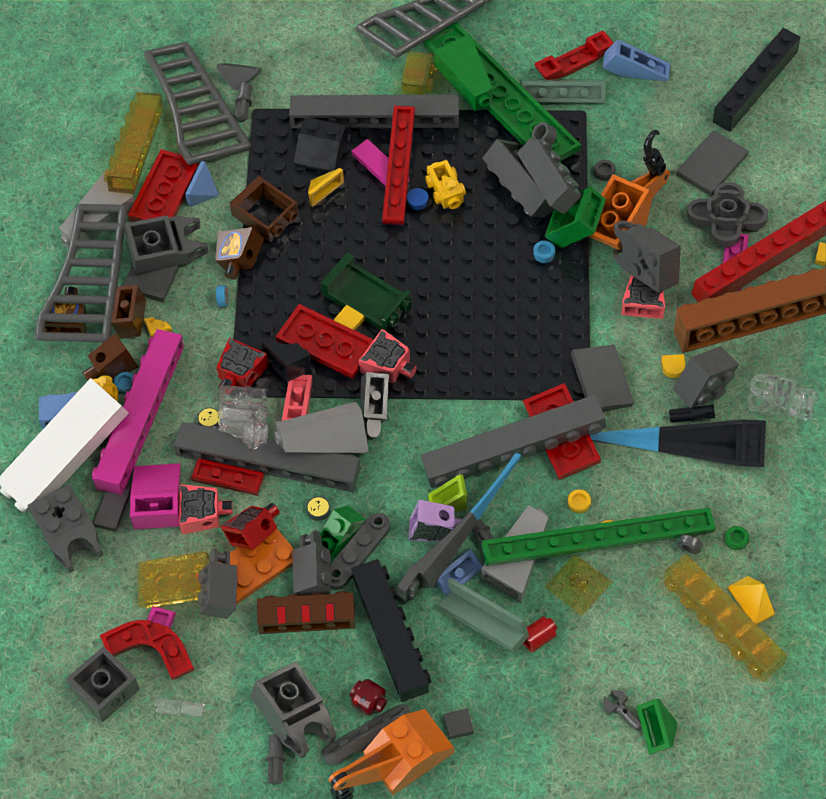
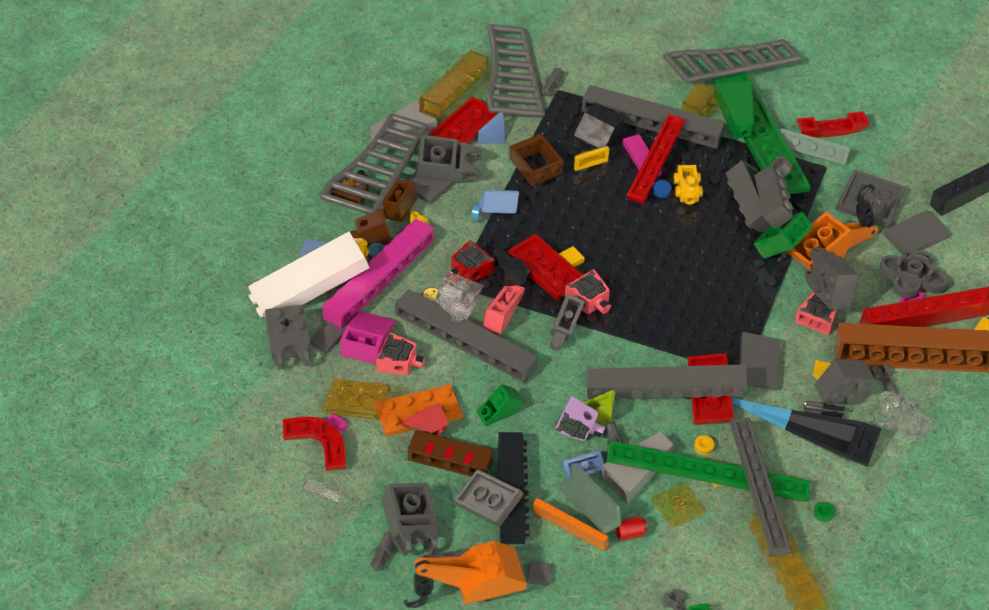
camera: 15 degrees right, 10 degrees down
(103, 684) = (270, 453): dark grey brick -> none
(218, 586) = (388, 411): dark grey brick -> none
(227, 476) = (429, 341): red tile -> none
(236, 74) = (555, 61): dark grey slope -> none
(237, 250) = (504, 178): reddish brown torso -> none
(243, 277) = (499, 201): none -> medium blue slope
(251, 526) = (432, 378): red torso -> none
(266, 580) = (429, 420): none -> slope
(311, 566) = (468, 421): dark grey brick -> none
(318, 508) = (490, 384): light yellow tile -> none
(325, 431) = (519, 328): light grey slope -> none
(359, 549) = (513, 422): dark grey plate -> none
(365, 293) = (591, 242): dark green panel -> none
(368, 697) = (474, 529): dark red head -> none
(370, 654) = (488, 498): none -> dark grey tile
(432, 565) = (561, 448): dark grey plate -> none
(471, 652) = (570, 524): none -> orange tile
(544, 251) = (749, 256): dark azure tile -> none
(604, 169) = (822, 209): dark grey tile -> none
(634, 63) = (880, 142): medium blue slope -> none
(636, 124) = (882, 199): none -> dark grey plate
(662, 536) = (760, 487): none -> dark grey tile
(690, 544) = (783, 502): dark grey tile -> none
(742, 352) = (884, 377): none -> dark grey bar
(752, 598) = (819, 560): yellow slope -> none

